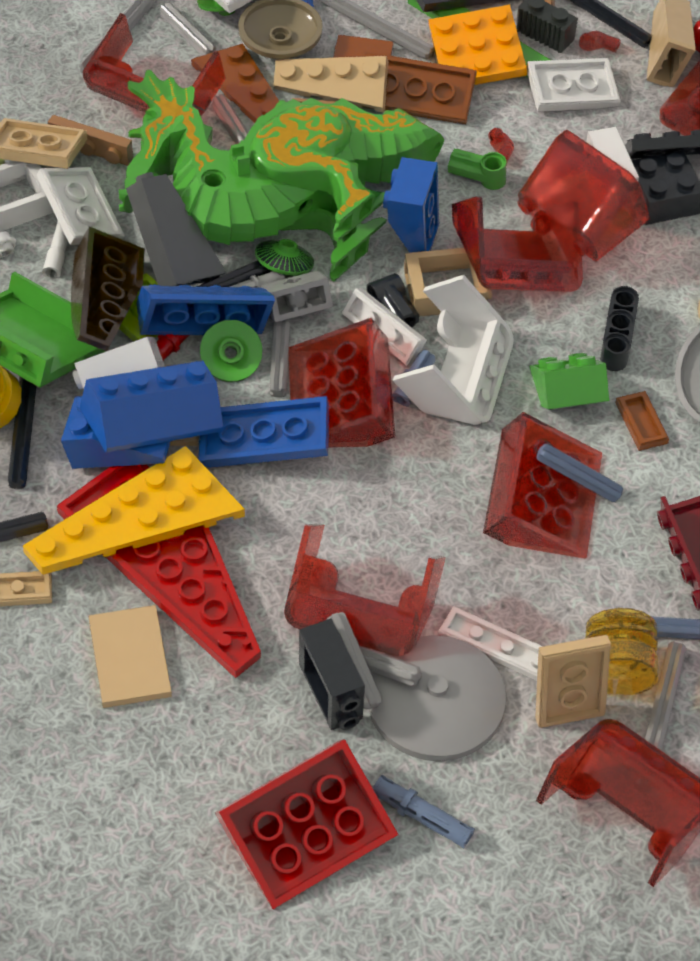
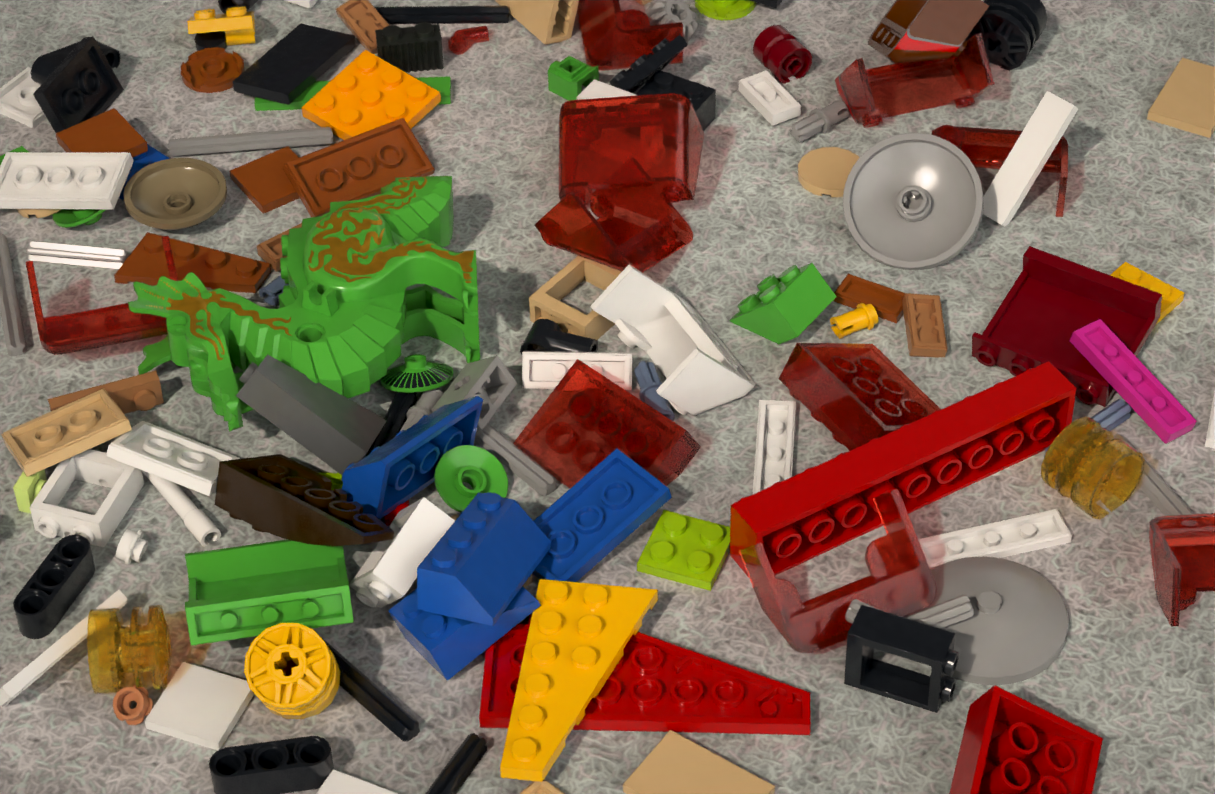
camera: 40 degrees left, 10 degrees down
(309, 498) = (685, 550): none -> lime plate
(351, 78) = (278, 204): tan wing -> none
(414, 203) = (503, 240): blue slope -> none
(429, 815) = (1103, 707): sand blue pin -> none
(439, 480) = (774, 443): none -> white tile
(487, 169) = (505, 193): bright green piece -> none
(494, 553) = (919, 459): none -> red brick
(501, 142) = (490, 168): clear red arm -> none
(572, 84) = (490, 83): white tile -> none
(572, 681) = (1095, 511): tan tile -> none
(579, 472) = (886, 364): sand blue axle -> none
(607, 427) = (862, 317): none -> yellow pin
(619, 328) = (769, 237): black beam -> none
(628, 113) = (569, 75): none -> bright green window
(649, 466) = (924, 325): none -> medium nougat plate

